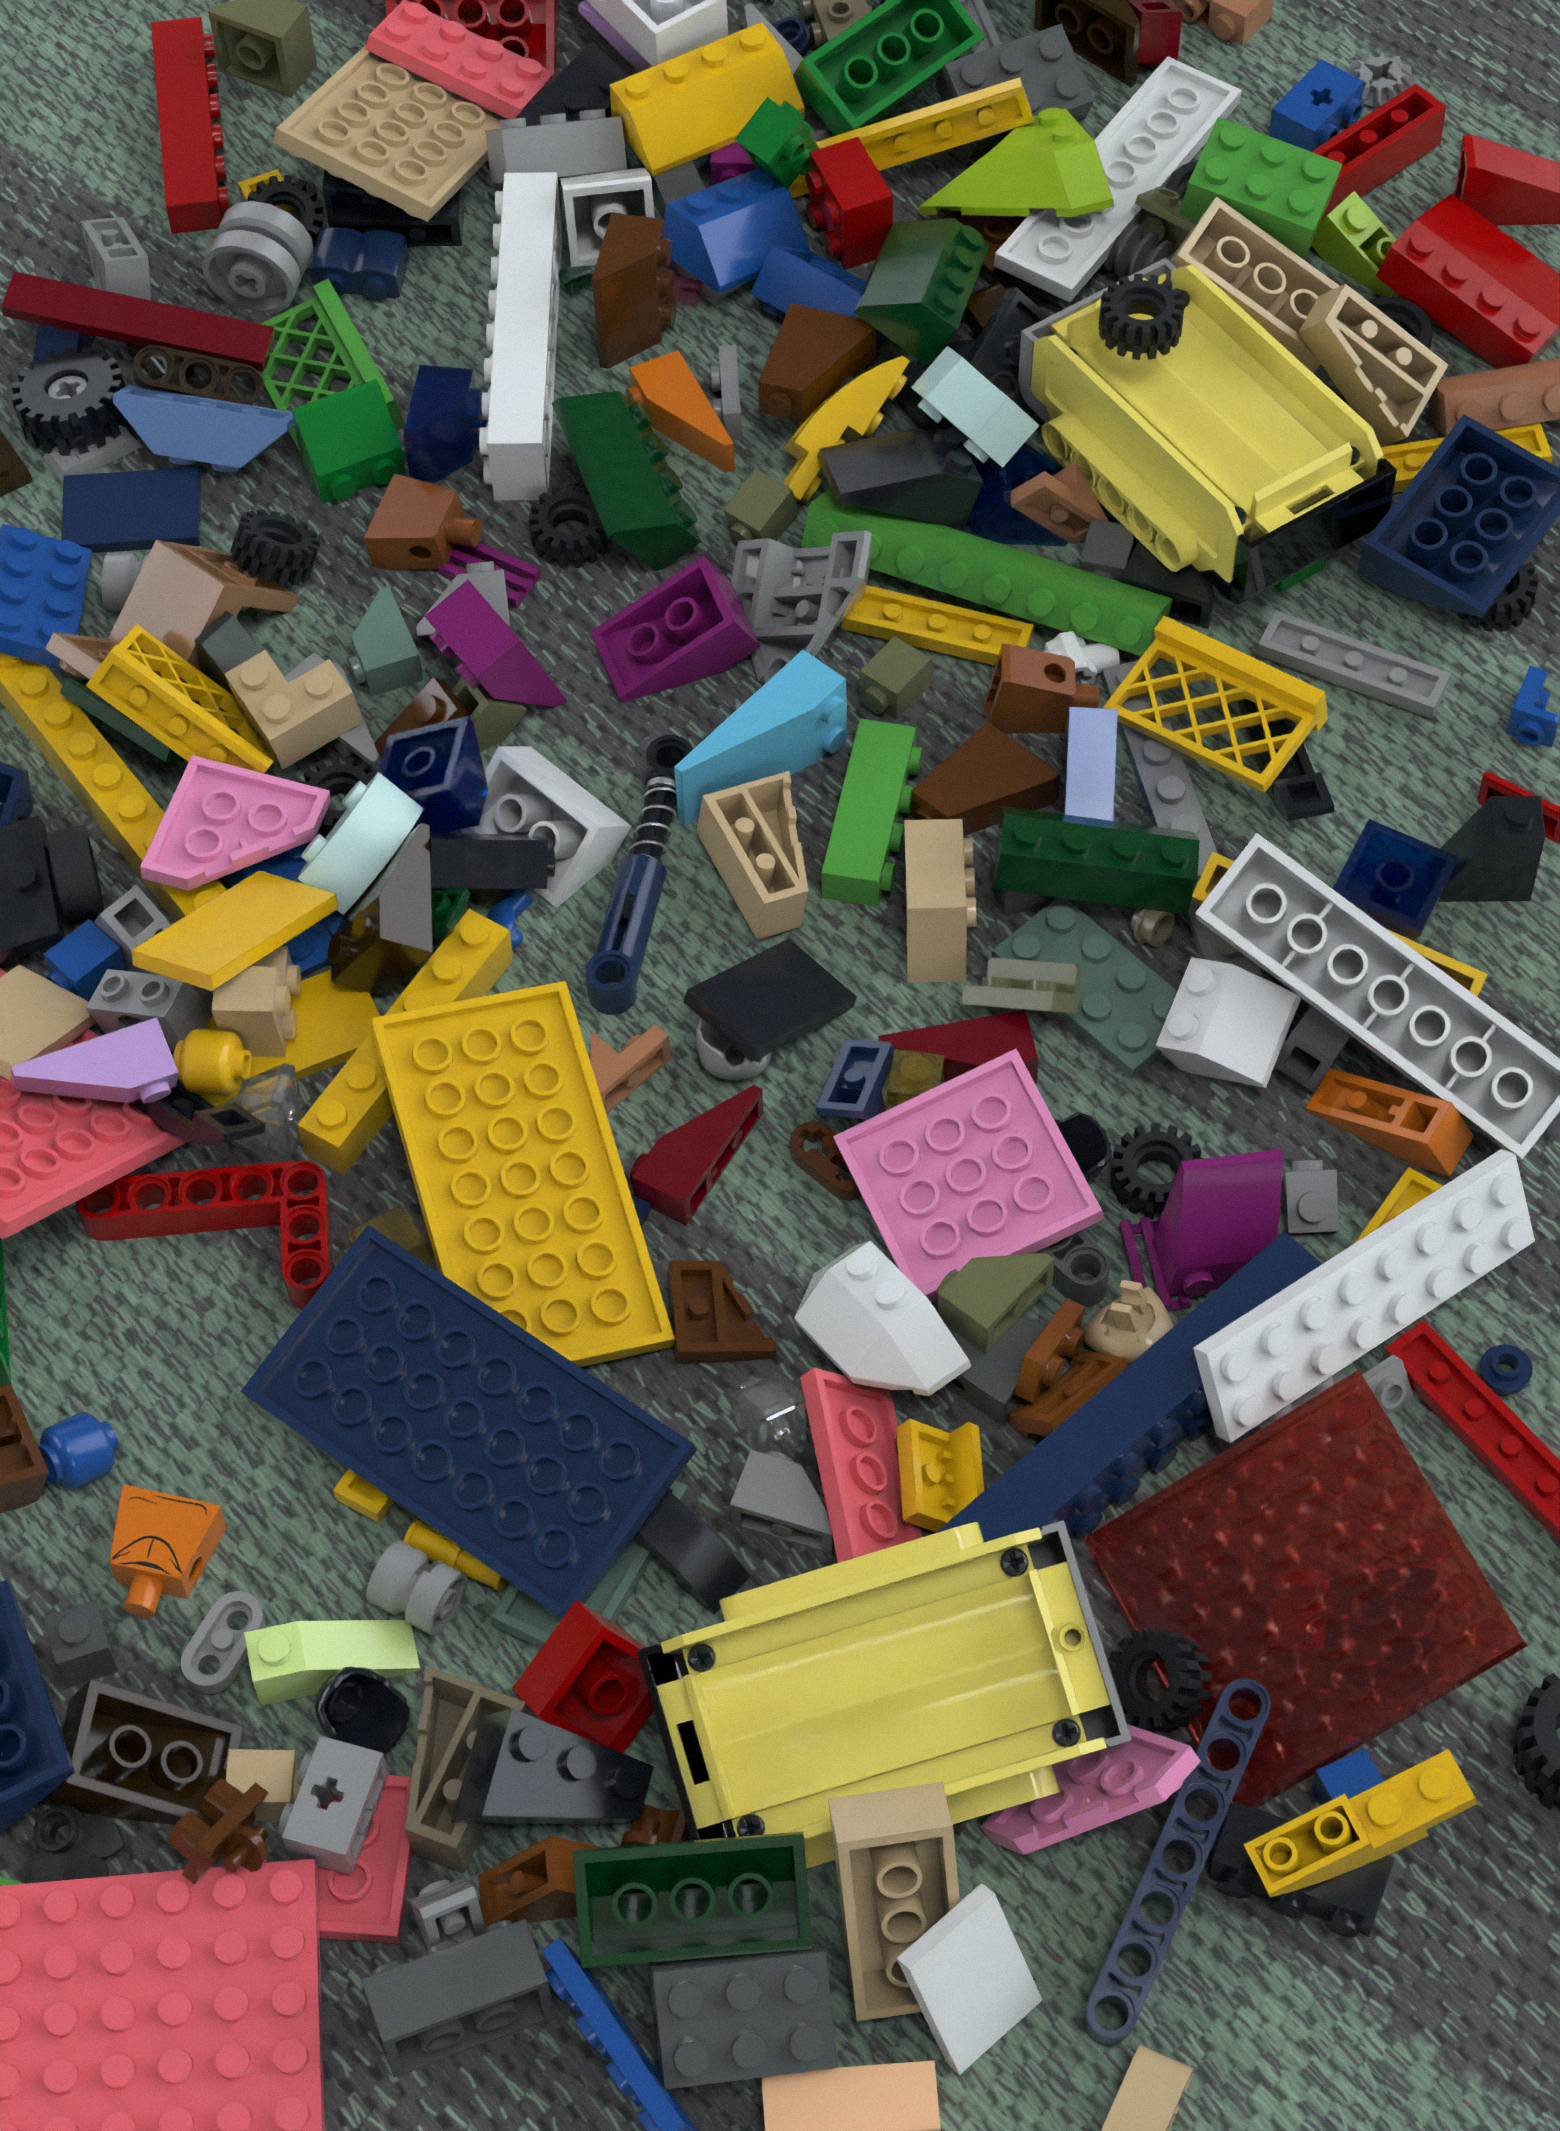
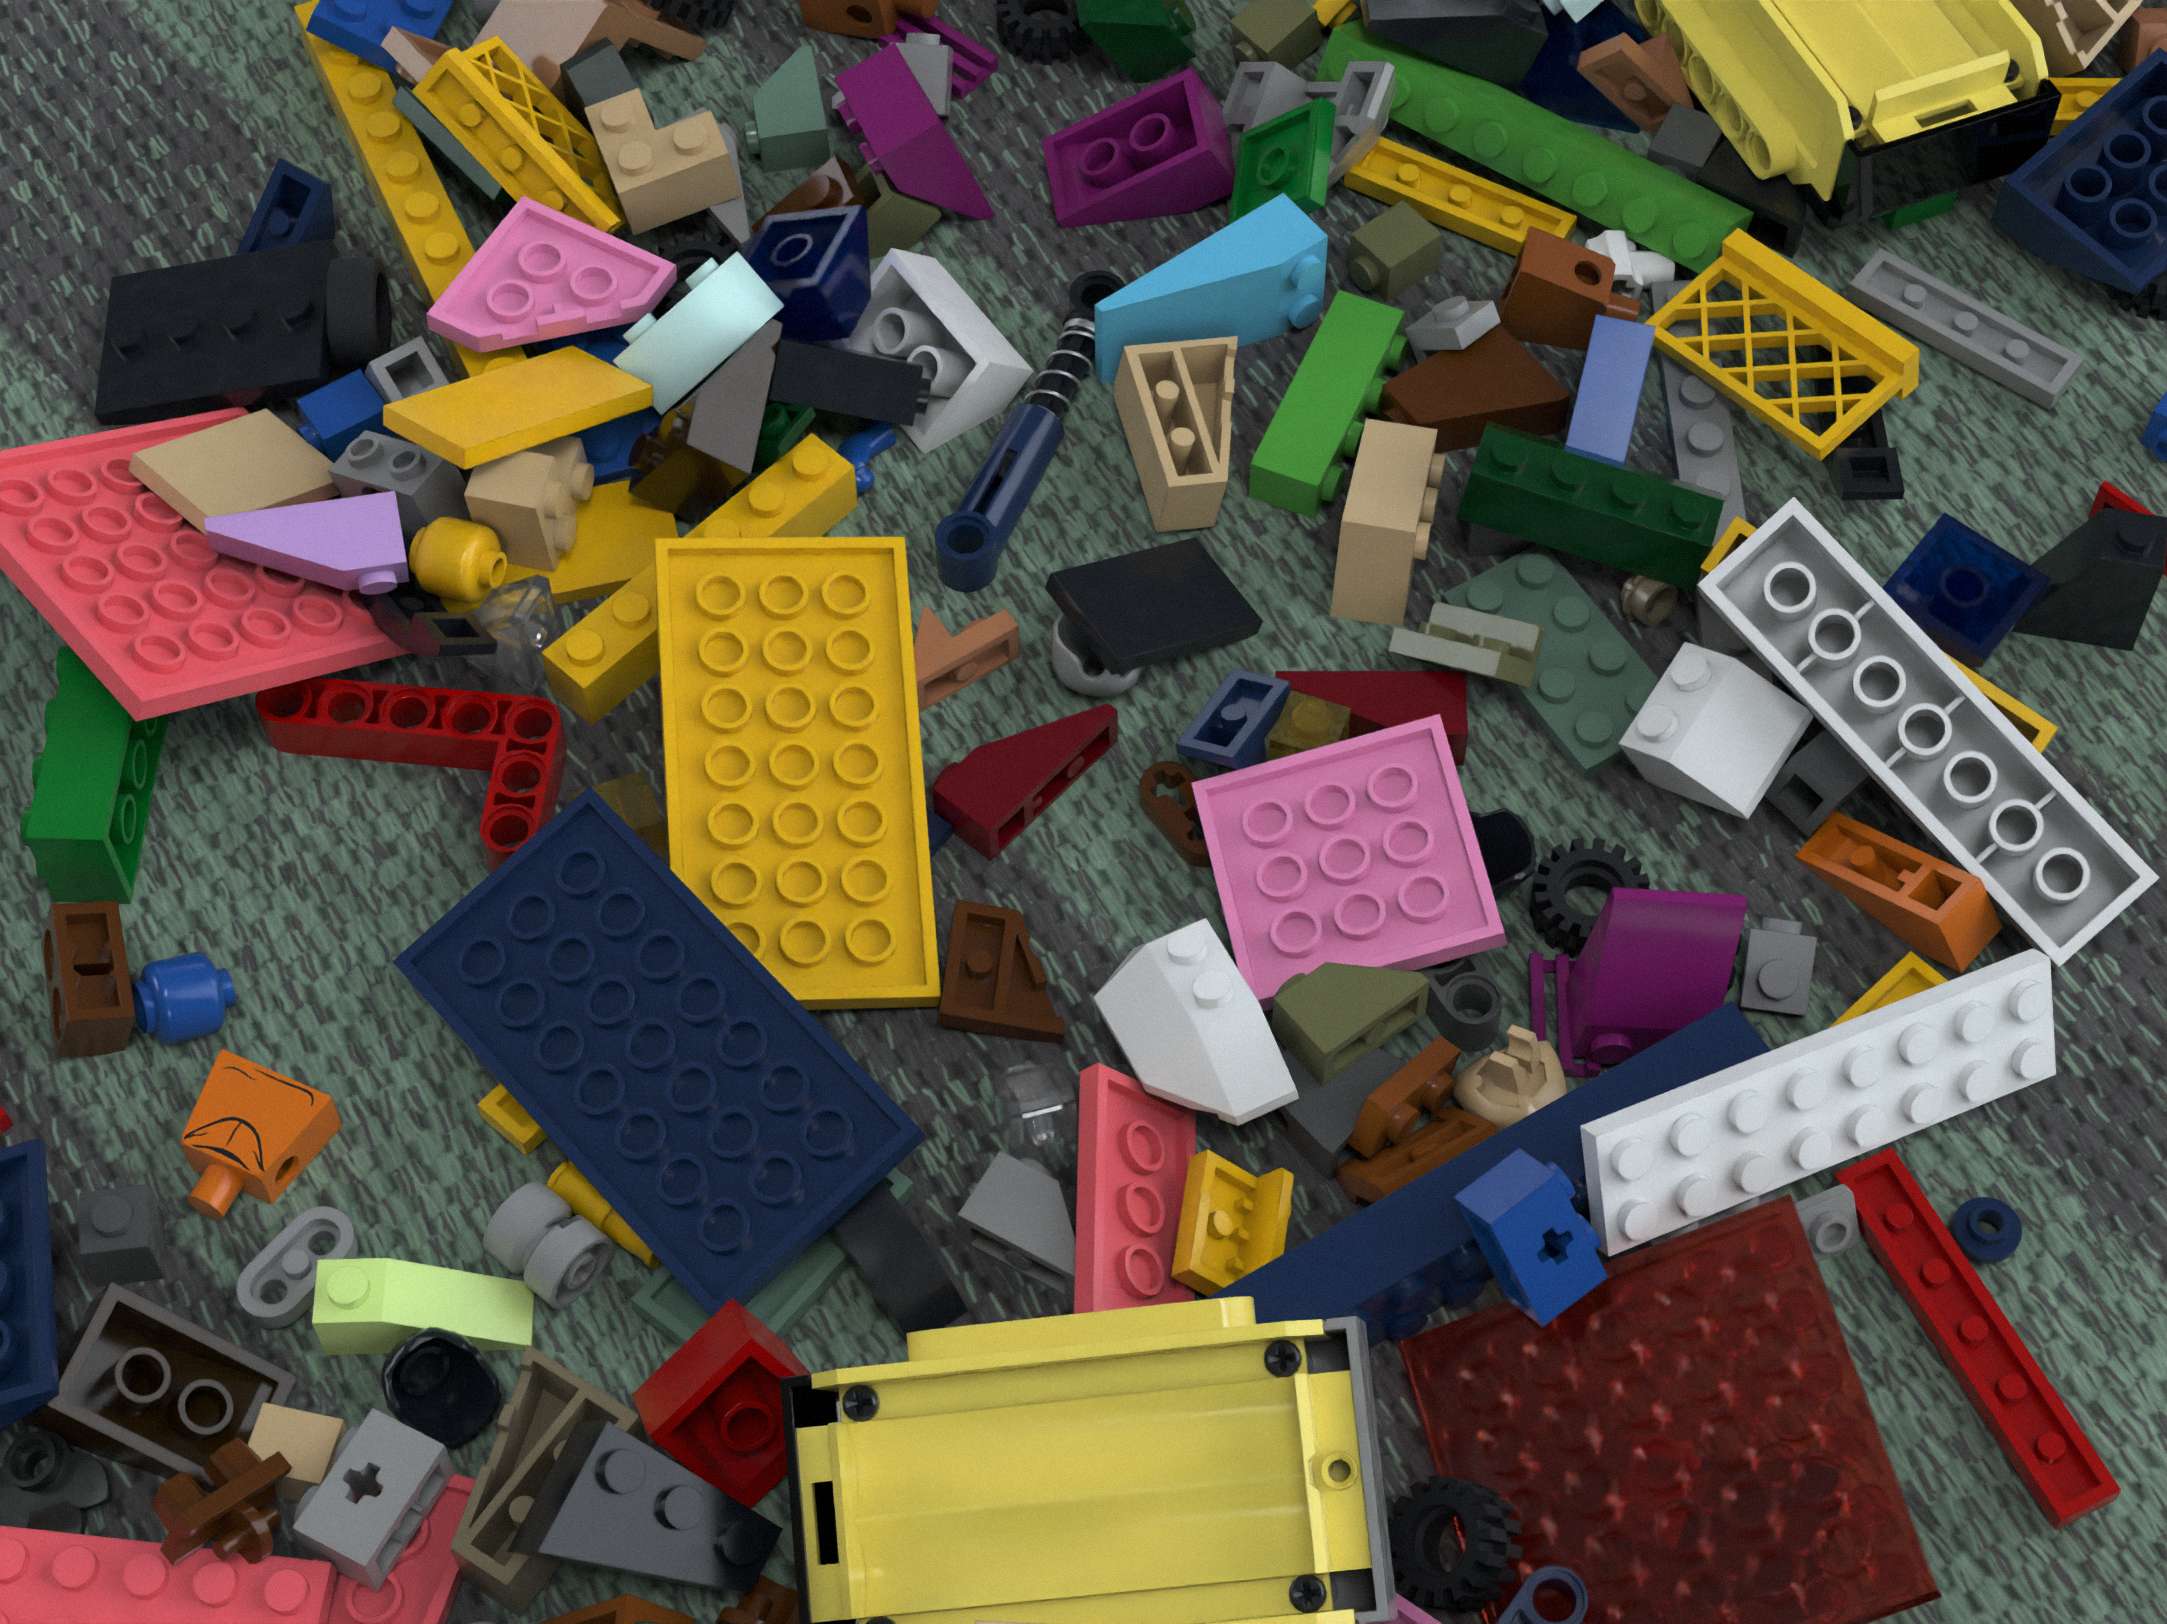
camera: 10 degrees right, 0 degrees up
(795, 620) = (1286, 158): none -> green tile
(955, 733) = (1451, 326): none -> light grey bracket
(1173, 1437) = (1532, 1235): none -> blue brick

